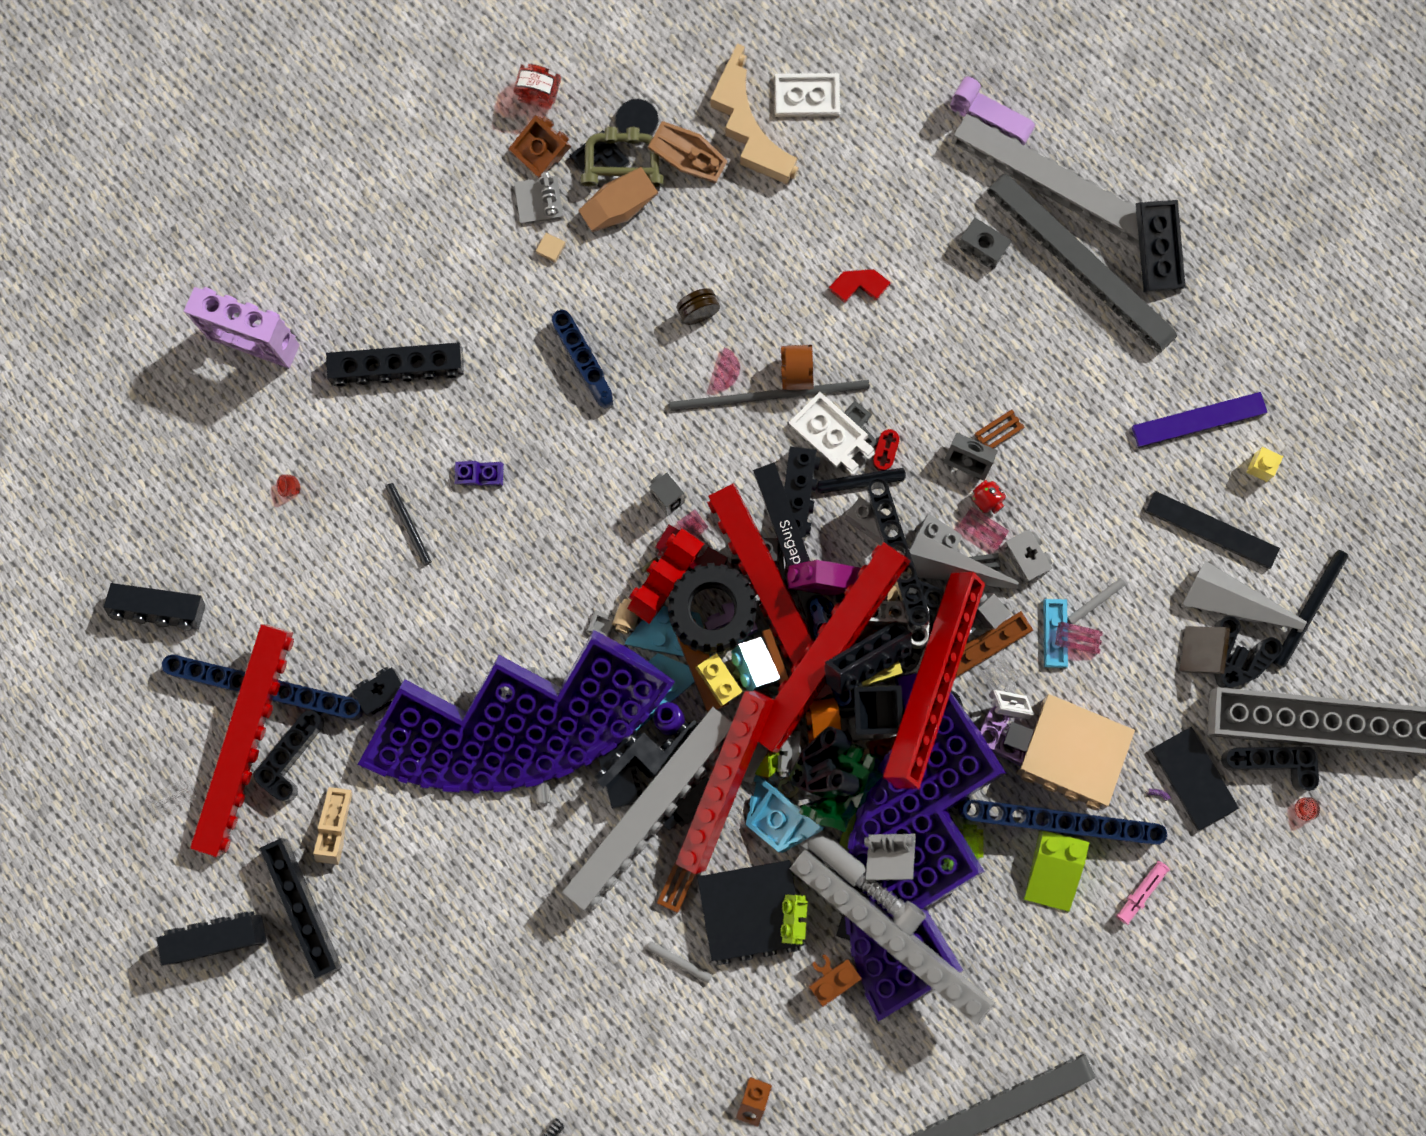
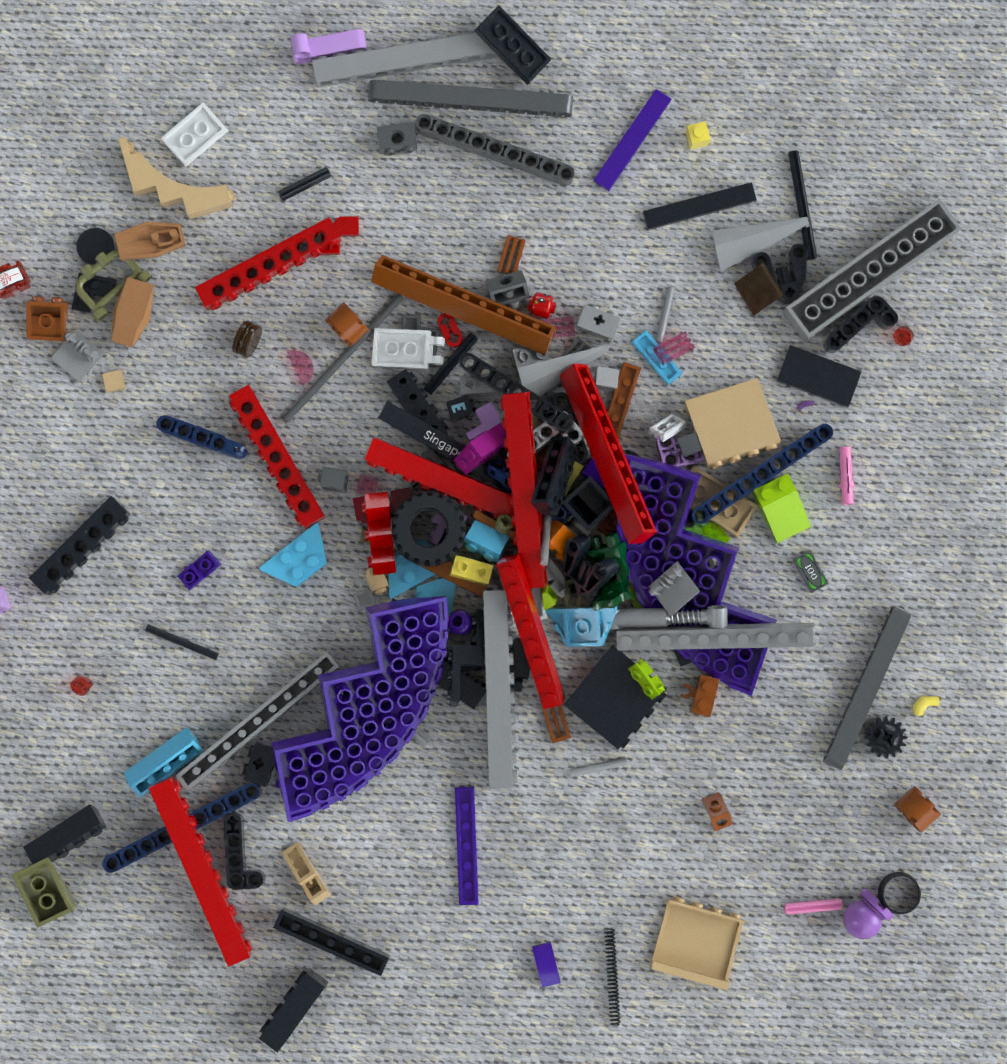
camera: 40 degrees left, 5 degrees up
(92, 638) = (44, 892): none -> olive slope
(298, 614) = (163, 761): none -> medium azure brick
(408, 650) = (256, 722): none -> light grey brick
(473, 1103) = (546, 964): none -> dark purple slope
(497, 928) = (466, 846): none -> dark purple tile
(575, 538) = (299, 558): none -> medium azure wing
(653, 356) = (238, 401): none -> red brick
(765, 248) = (274, 254): none -> red brick
(779, 665) = (499, 524): none -> olive bush
(809, 710) = (545, 540): none -> light grey bar
(835, 527) = (460, 408): none -> black brick
(853, 555) = (488, 418): none -> lavender brick
(867, 215) = (304, 183): none -> black axle
(918, 437) = (463, 304): none -> dark orange brick
(1003, 840) = (732, 518): none -> tan tile
(1033, 953) = (810, 571): none -> dark grey tile
(1064, 314) = (488, 143): none -> dark grey beam

